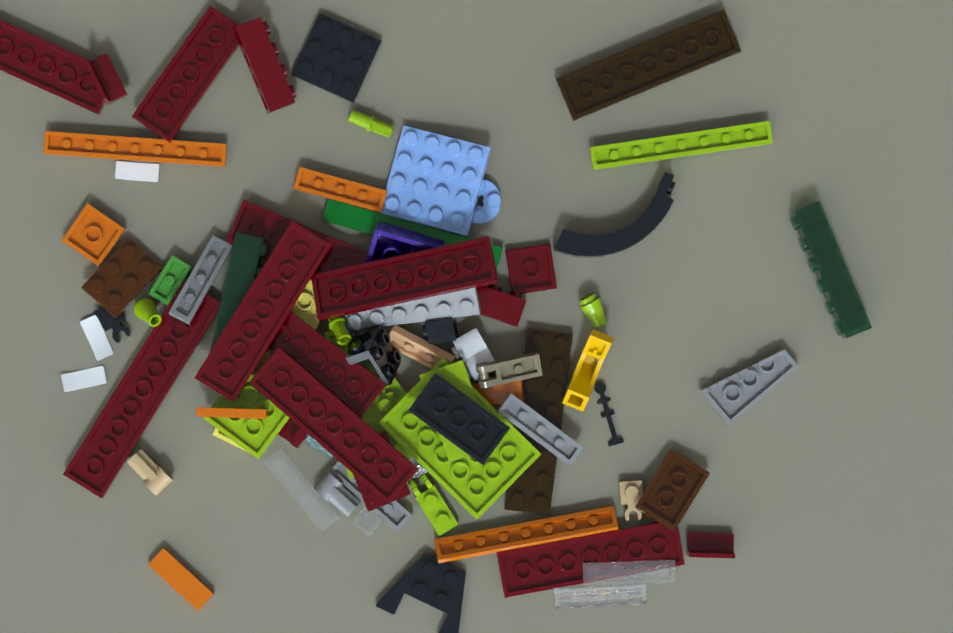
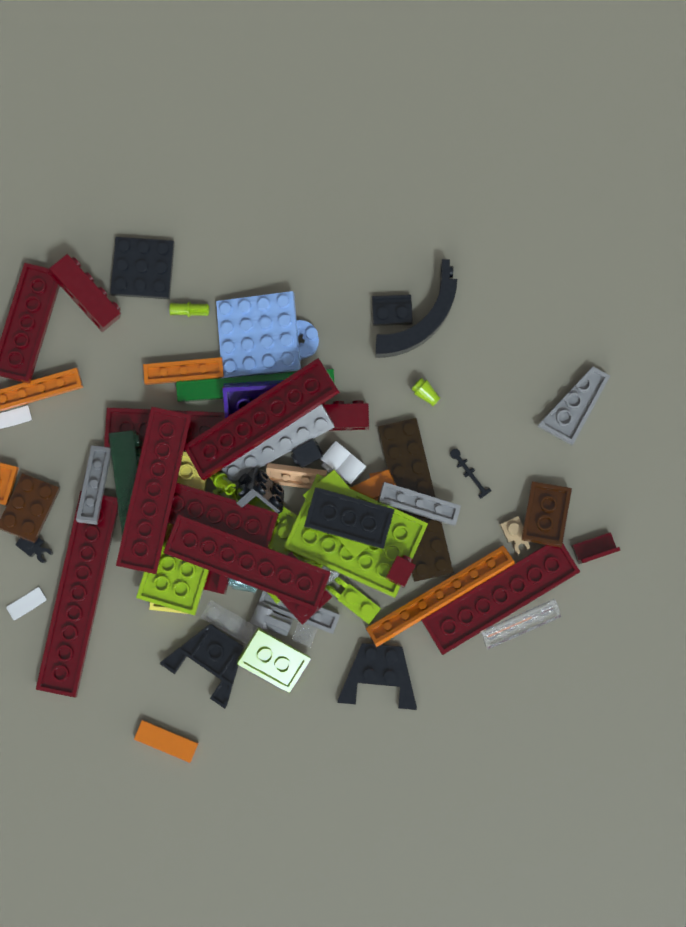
camera: 15 degrees left, 5 degrees down
(96, 337) = (25, 565): white sticker -> none
(147, 311) = (58, 527): lime cone -> none
(153, 476) = (112, 662): tan piece -> none
(170, 280) = (69, 495): bright green plate -> none
(232, 412) = (158, 583): orange tile -> none
(264, 505) = (213, 652): none -> black wing
(324, 537) = (273, 660): none -> plate
(493, 494) = (401, 570): none -> dark red brick
(509, 370) = (375, 464): dark tan plate -> none
(531, 269) = (362, 378): dark red tile -> none
(587, 370) = (439, 441): yellow arch -> none
(591, 205) = (392, 310): none -> black plate
(629, 573) = (537, 595): clear plate -> none
(648, 65) = (395, 182): dark brown plate -> none
(681, 145) = (446, 235): lime plate -> none
(830, 269) = (604, 290): clear green brick -> none

